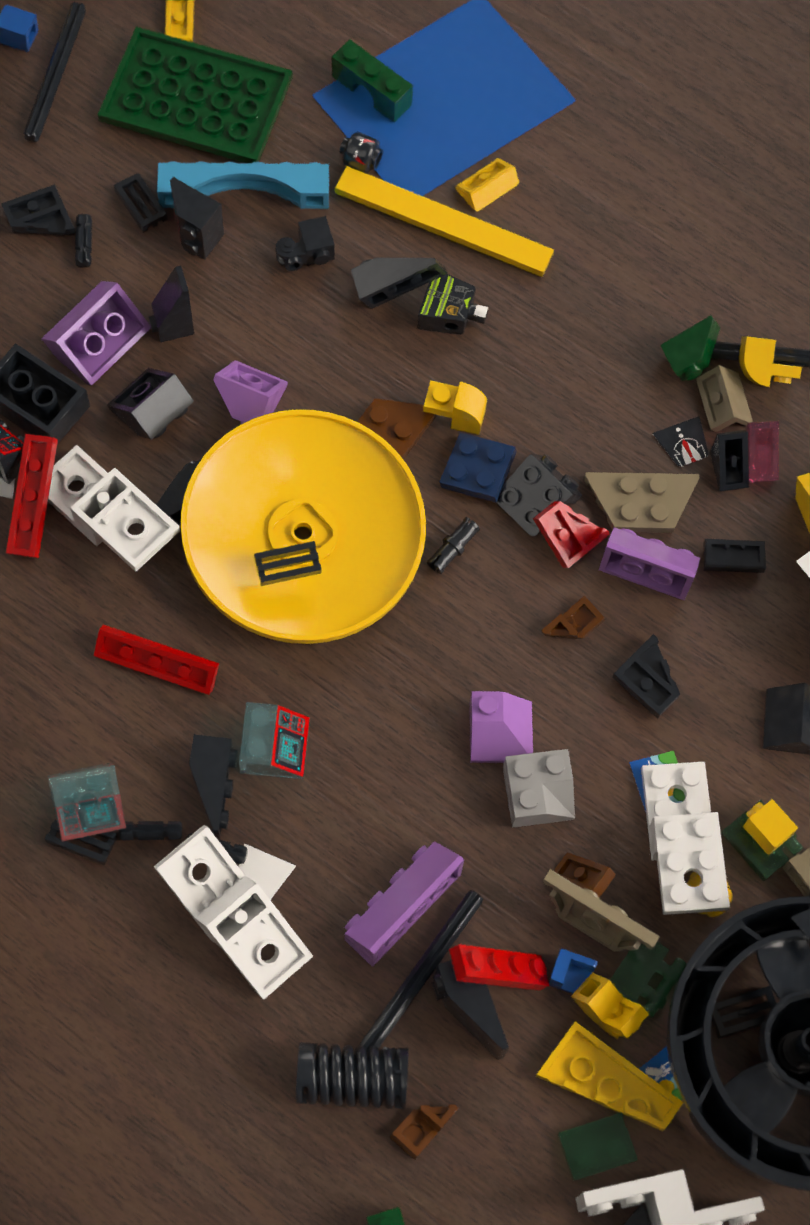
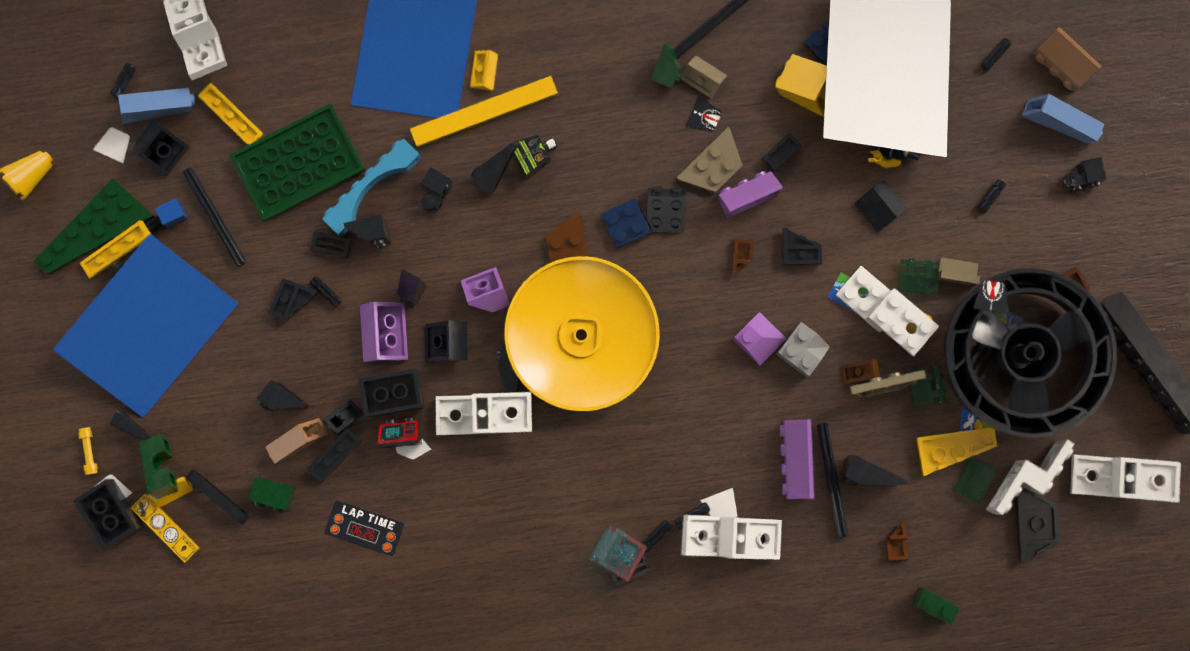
camera: 35 degrees left, 15 degrees up
(31, 496) = (443, 441): red plate -> none
(156, 659) = (578, 459): red plate -> none
(210, 769) = (655, 485): black slope -> none
(273, 741) = (669, 444): clear light blue slope -> none
(285, 552) = (604, 346): black tile -> none
(352, 1075) = (848, 549): black piece -> none
(356, 67) = (361, 71): dark green arch -> none
(361, 152) = (409, 114): black head -> none
(453, 545) = (653, 273): black pin -> none
(463, 404) = (589, 202): yellow brick -> none
(498, 967) = (869, 450): red plate -> none
(568, 532) = (700, 216): red wing -> none
(571, 971) = (894, 417): blue panel -> none
(608, 1007) = (926, 417): yellow brick -> none
(731, 460) = (737, 106): black slope -> none
(757, 362) = (706, 44): yellow brick -> none
(763, 451) = (747, 88): clear pink slope -> none
(769, 825) = (919, 270): yellow brick -> none

